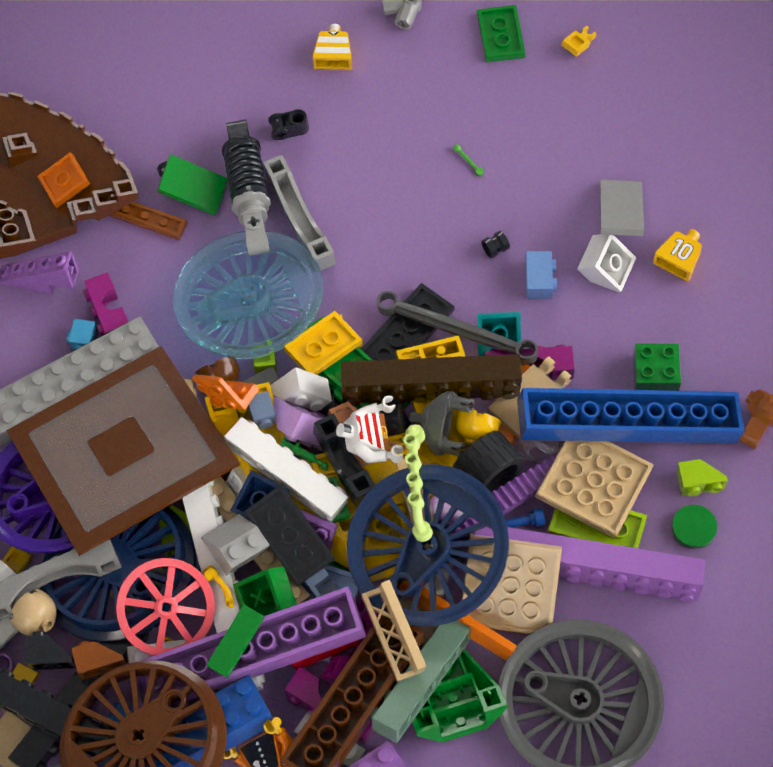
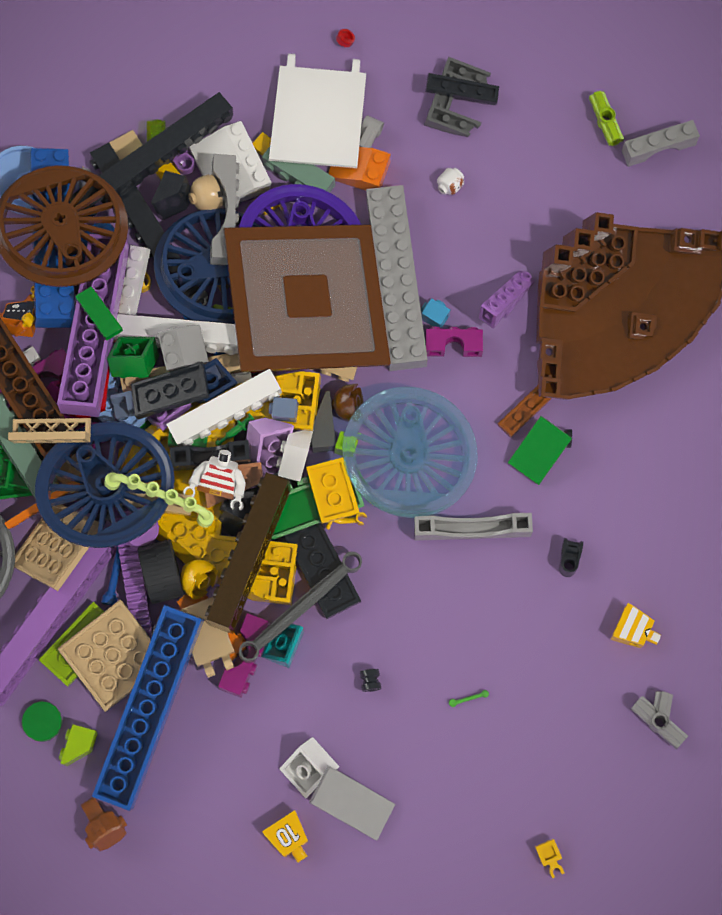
camera: 110 degrees right, 10 degrees up
(63, 180) = (590, 348): orange tile -> none
(95, 659) = (148, 222): dark orange slope -> none
(167, 598) = (160, 280): coral wheel -> none
(211, 573) = (169, 324): yellow piece -> none
(226, 394) = (303, 388): orange bracket -> none
(247, 184) = (516, 490): piece -> none
(437, 422) = (210, 542): dark grey connector -> none
(501, 33) = (591, 790): green tile -> none
(539, 275) = (324, 704): medium blue brick -> none
(656, 367) = (189, 758): green brick -> none

